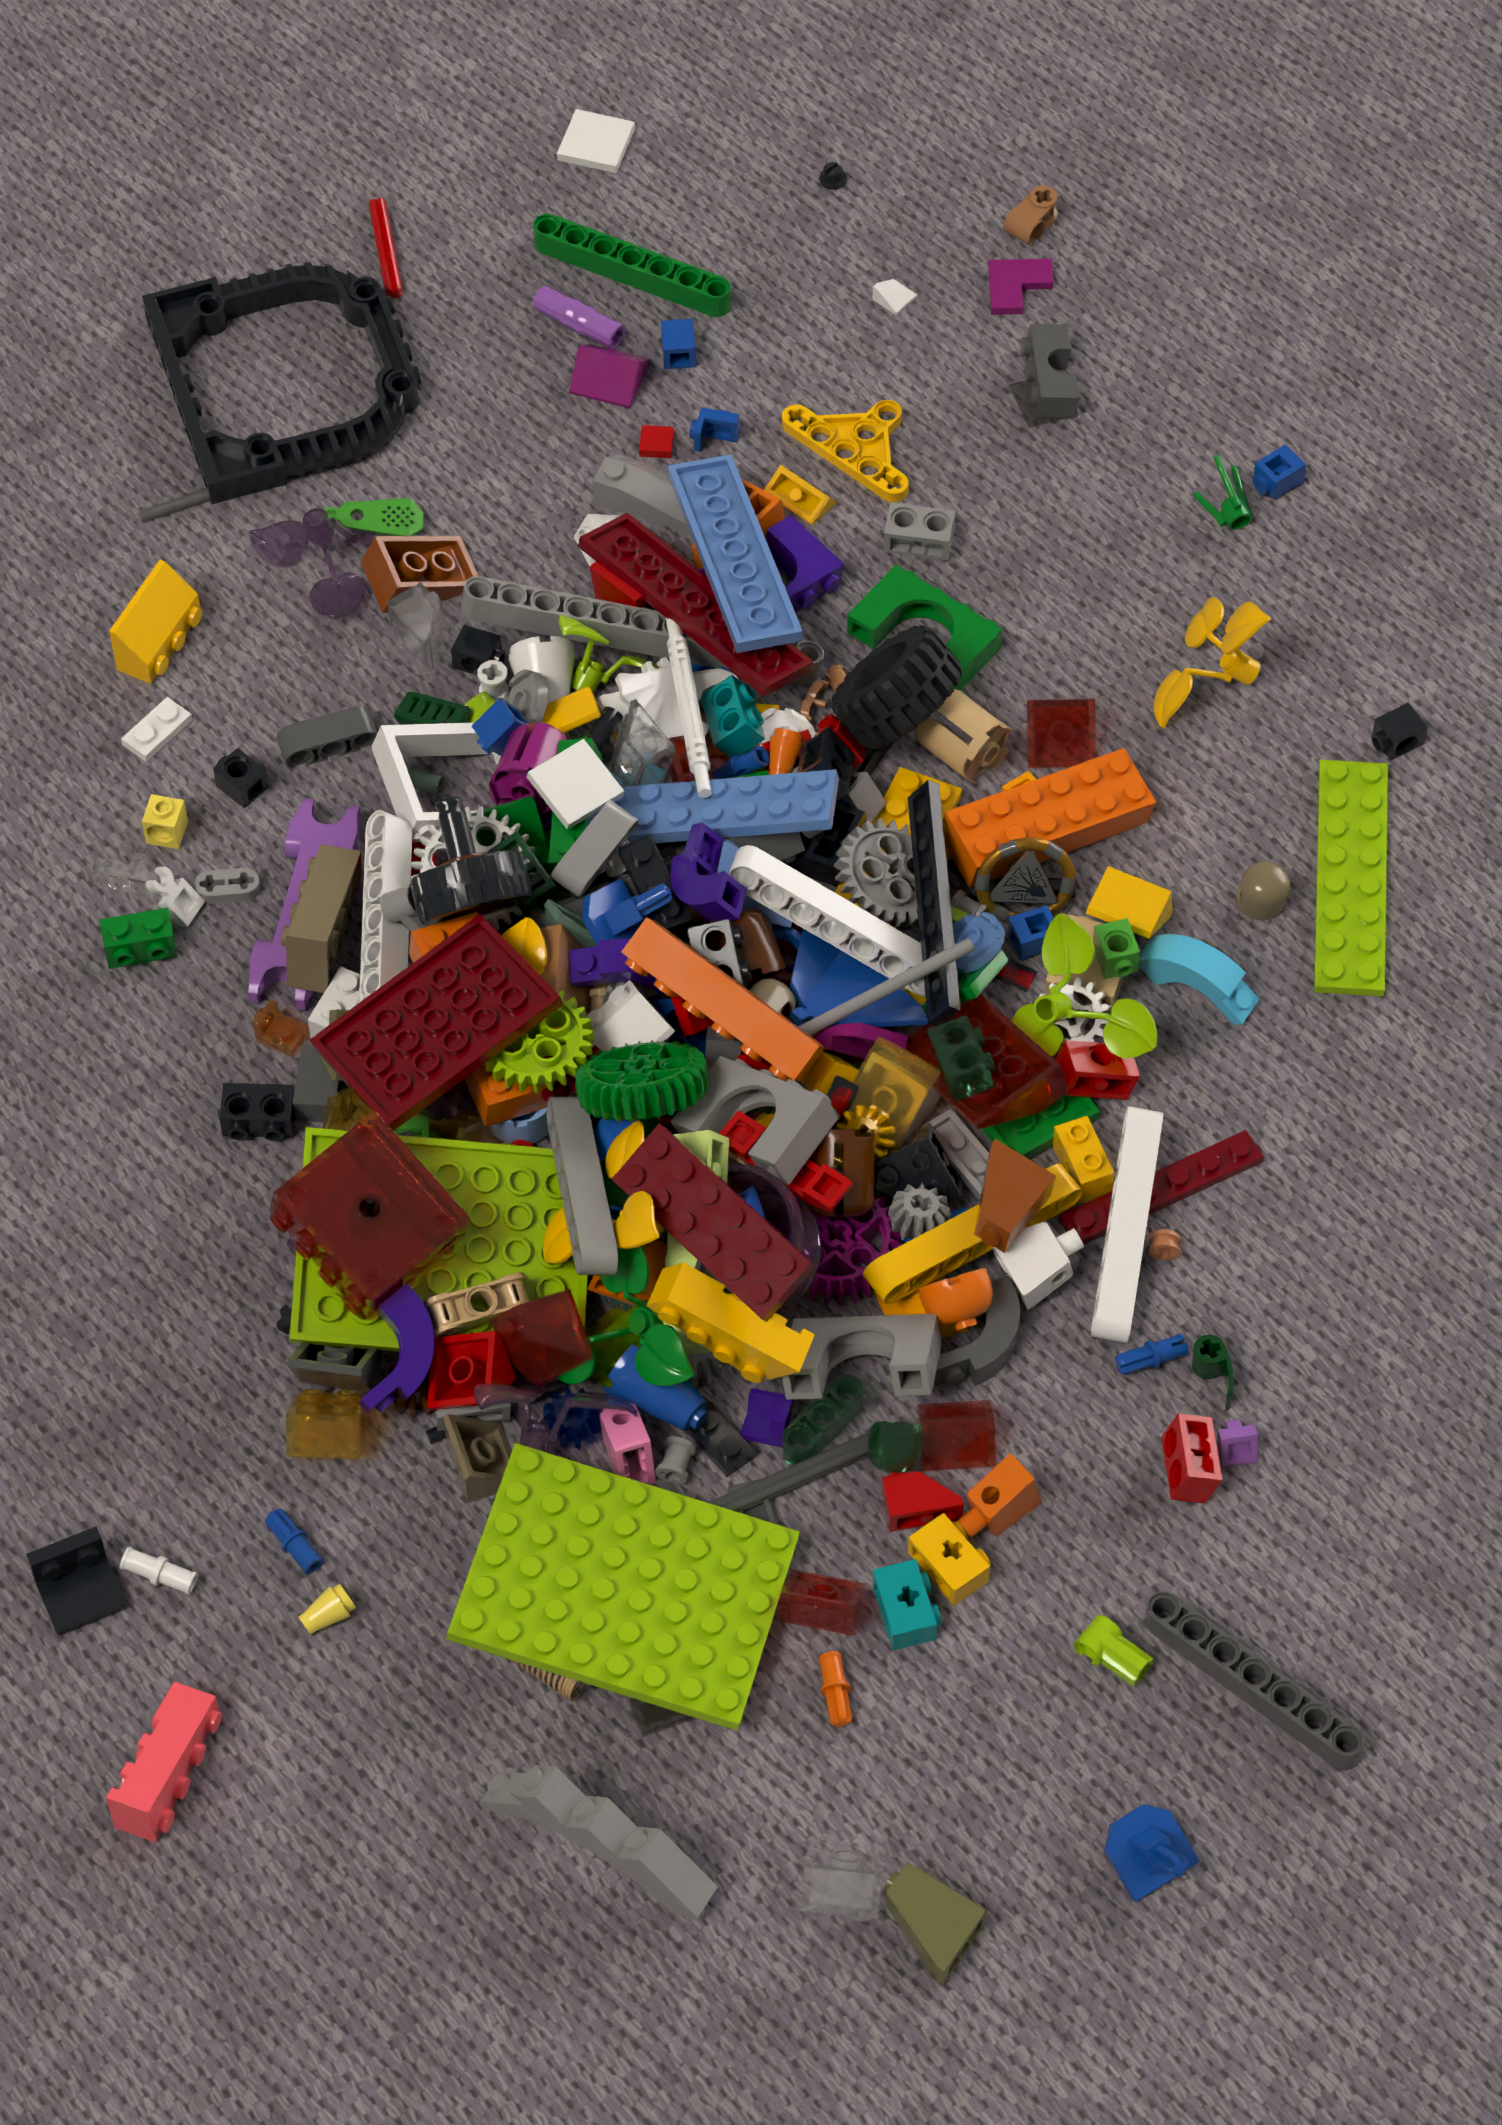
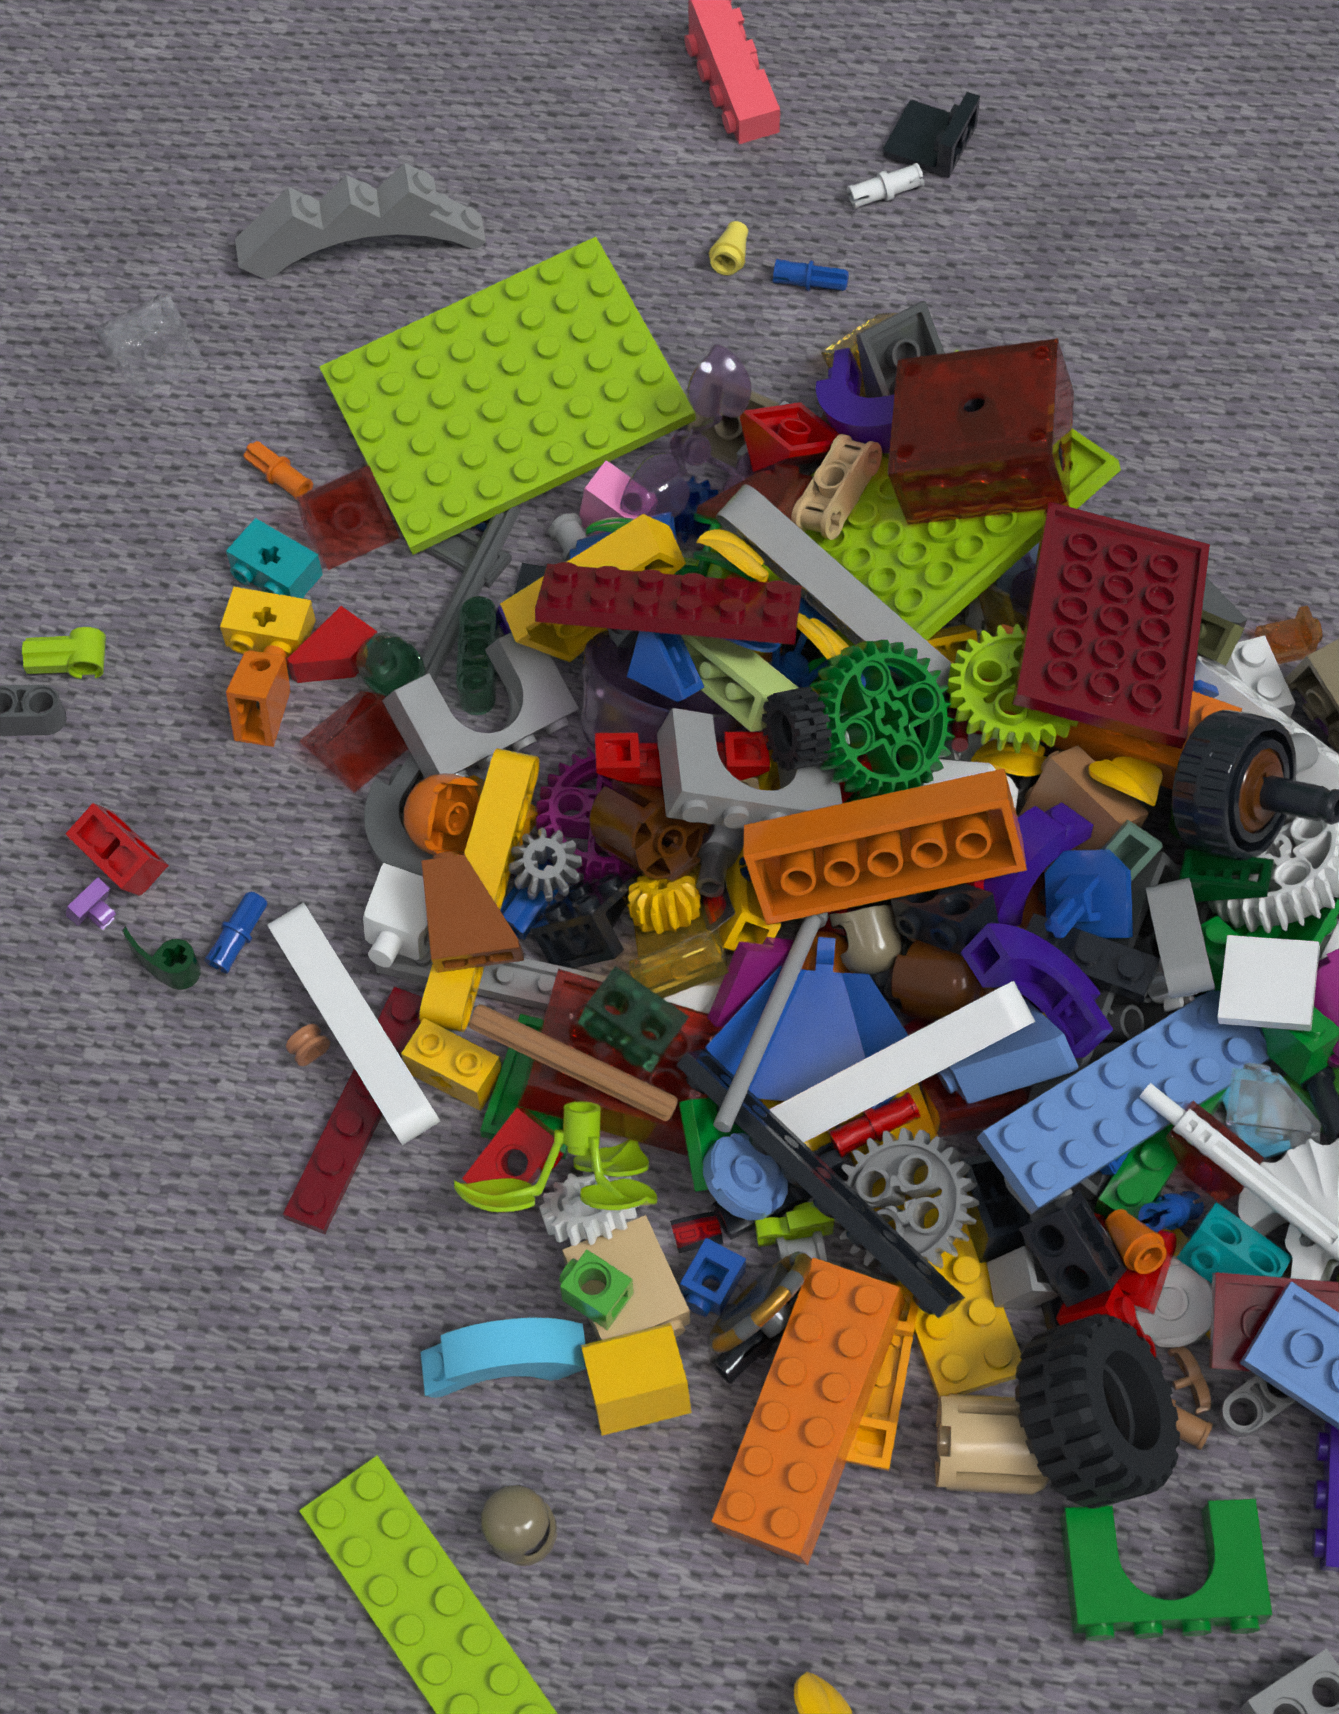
camera: 140 degrees right, 5 degrees up
(258, 1103) = (1231, 558): black brick -> none
(708, 1096) = (796, 728): none -> black tyre
(933, 1918) = (53, 362): olive slope -> none
(1022, 1057) = (573, 1062): none -> medium nougat axle
(1060, 732) = (897, 1549): clear red slope -> none

